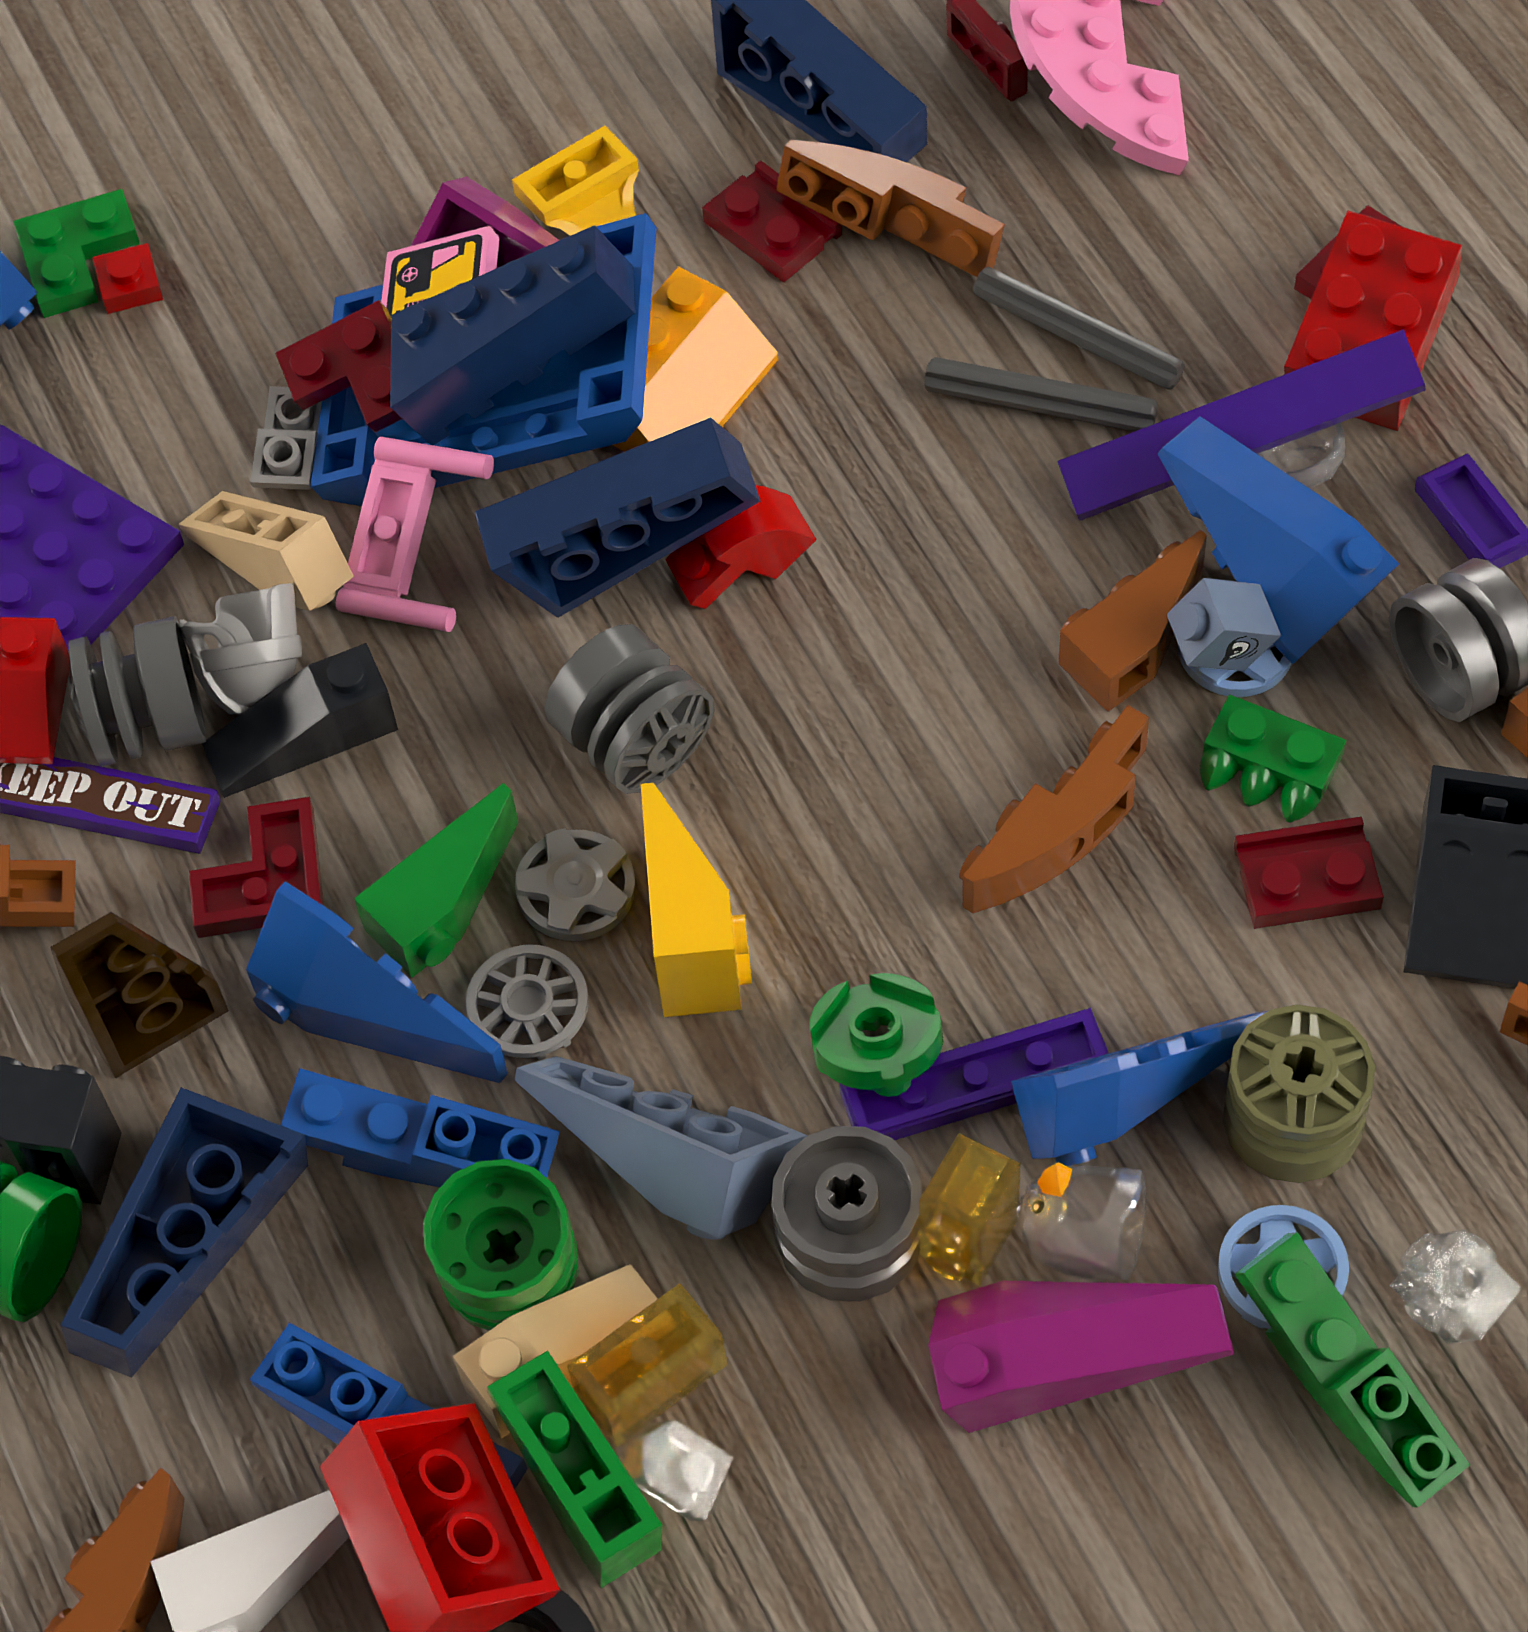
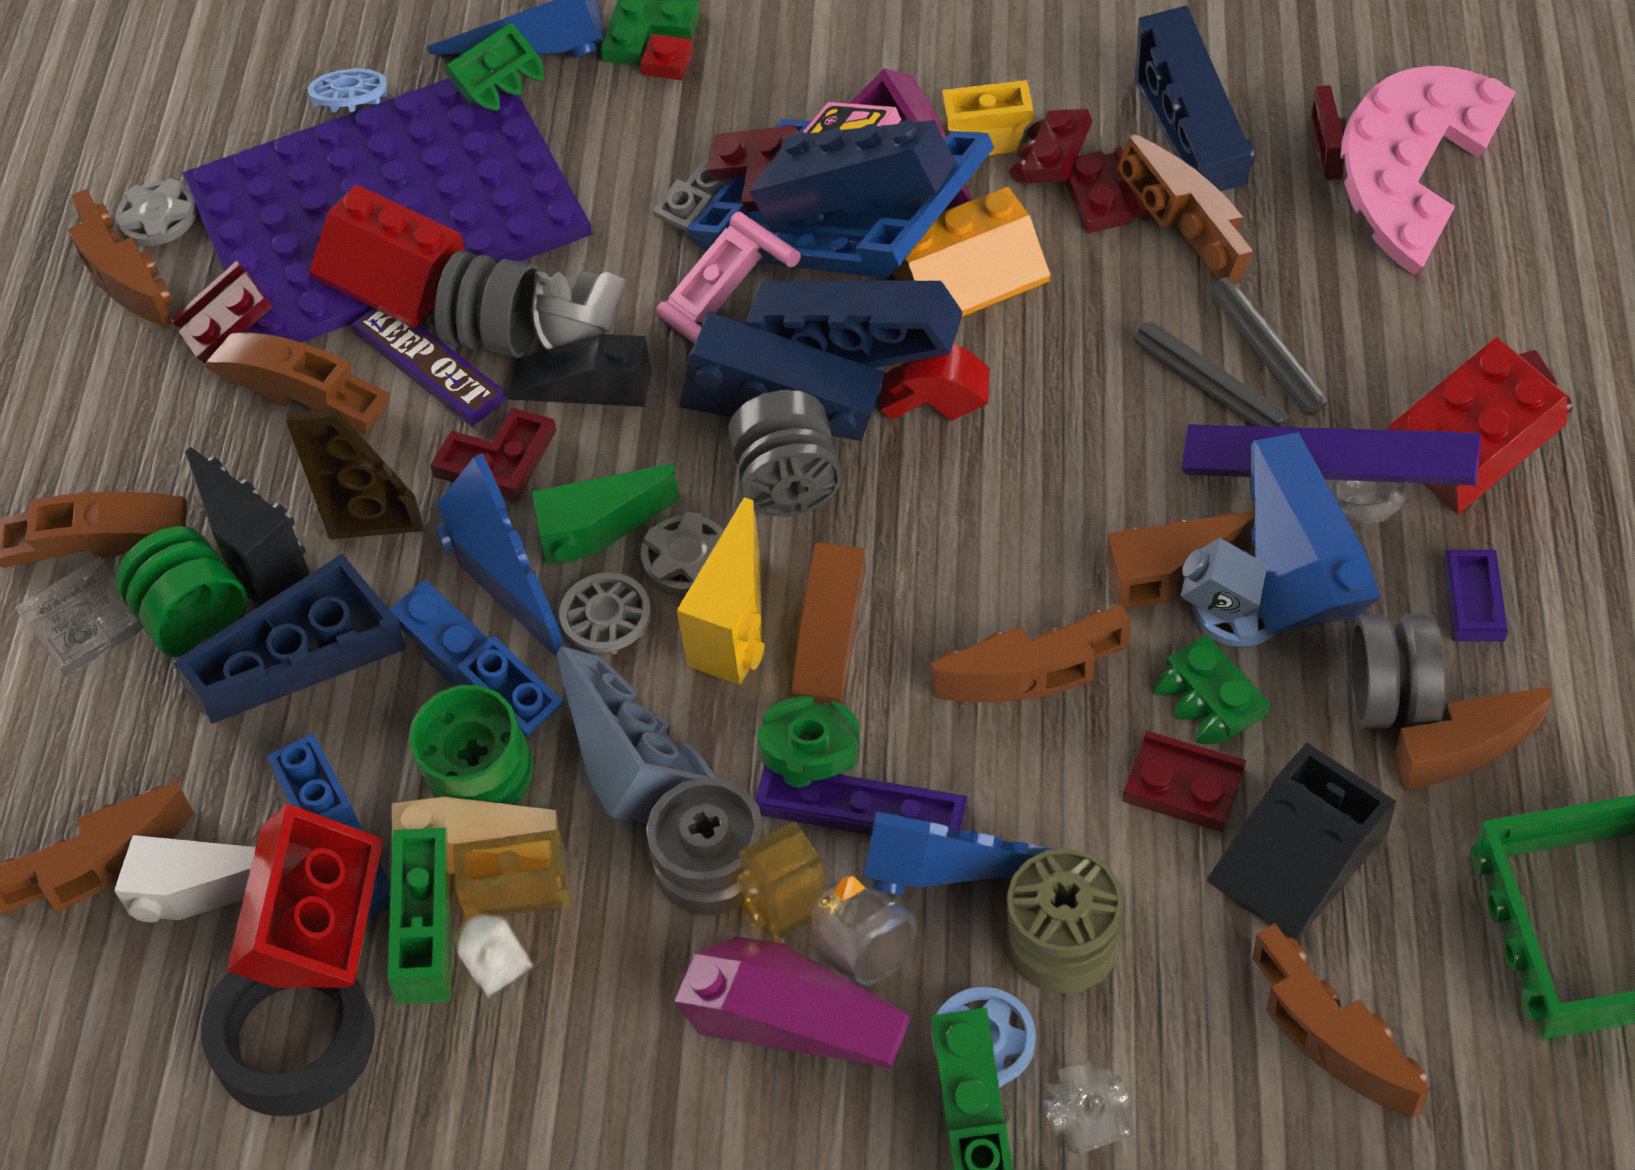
camera: 30 degrees right, 5 degrees down
(271, 546) = (637, 256): tan slope -> none
(522, 626) = (743, 362): none -> dark blue wedge
(684, 194) = (1053, 147): none -> dark red plate
(806, 885) = (829, 622): none -> dark orange slope

